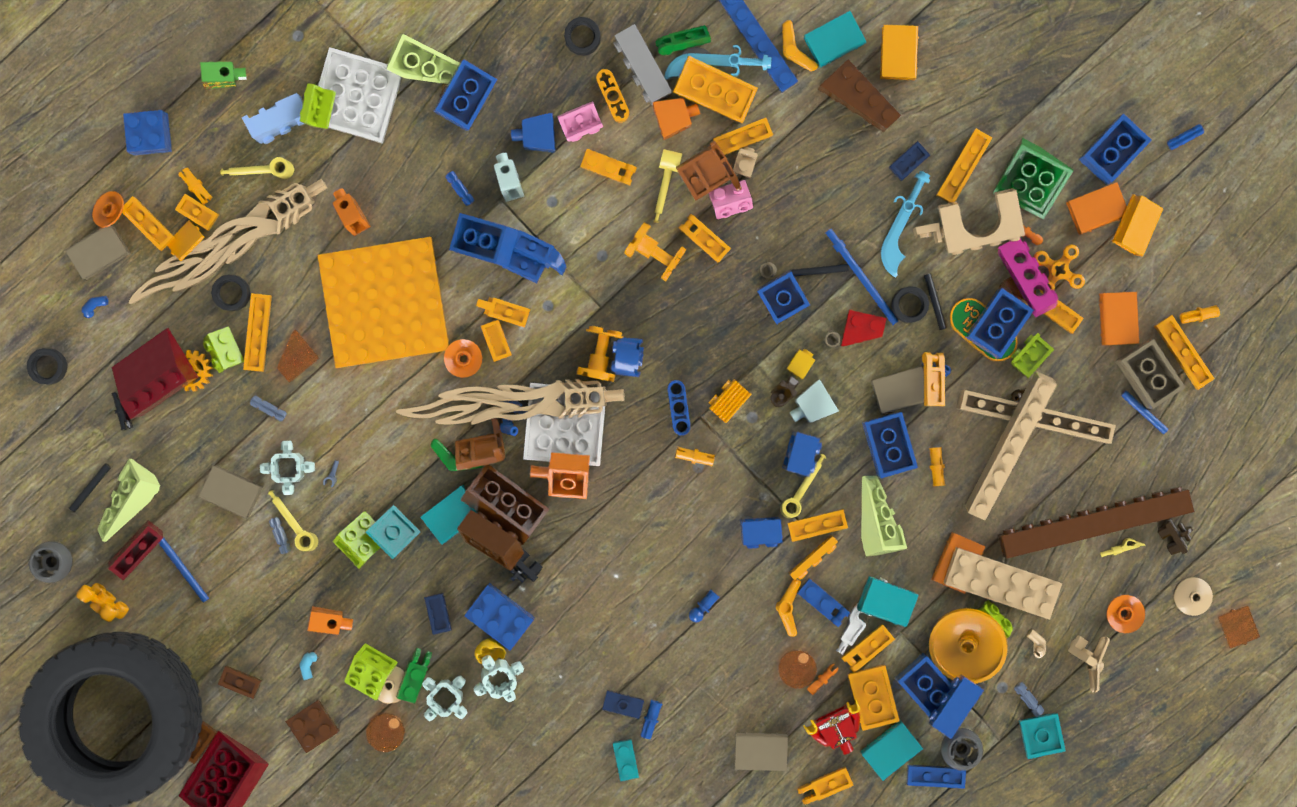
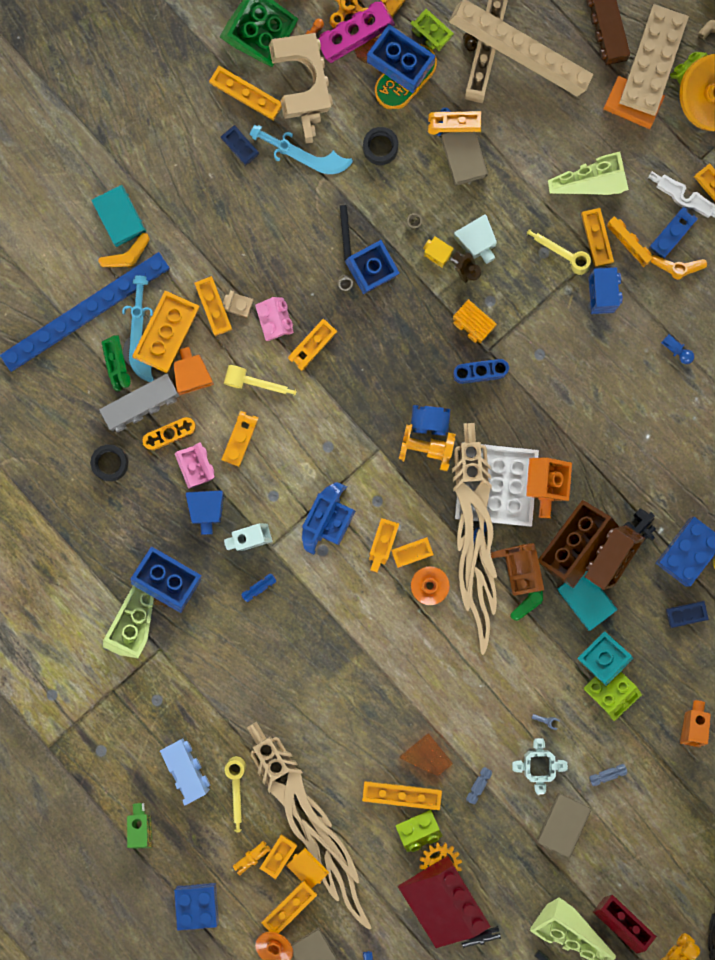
camera: 90 degrees left, 5 degrees down
(183, 570) = (645, 874): blue bar -> none
(215, 292) = (346, 822): black tyre -> none
(295, 526) = (598, 759): light yellow piece -> none
(317, 106) = (174, 728): lime bracket -> none
(350, 212) = (286, 695): orange torso -> none
(362, 95) = (163, 692): white plate -> none
(383, 302) = (372, 666): light orange plate -> none
(483, 240) = (312, 561): blue brick -> none
(508, 427) = (501, 541): blue arm -> none
(648, 247) = (321, 398): light orange piece -> none
(694, 456) = (529, 356): light orange pin -> none
(707, 171) = (247, 339): dark orange piece -> none
(801, 453) = (528, 249): blue brick -> none
(839, 246) = (322, 213): blue bar -> none
(856, 93) = (175, 191): reddish brown wedge -> none
(862, 327) = (402, 193): red wing -> none
(887, 601) = (672, 170): teal piece -> none
(890, 445) = (518, 165): blue brick -> none
(899, 52) = (133, 154): light orange piece -> none
(935, 301) = (377, 122): black bar -> none
(937, 466) = (539, 122): light orange pin -> none

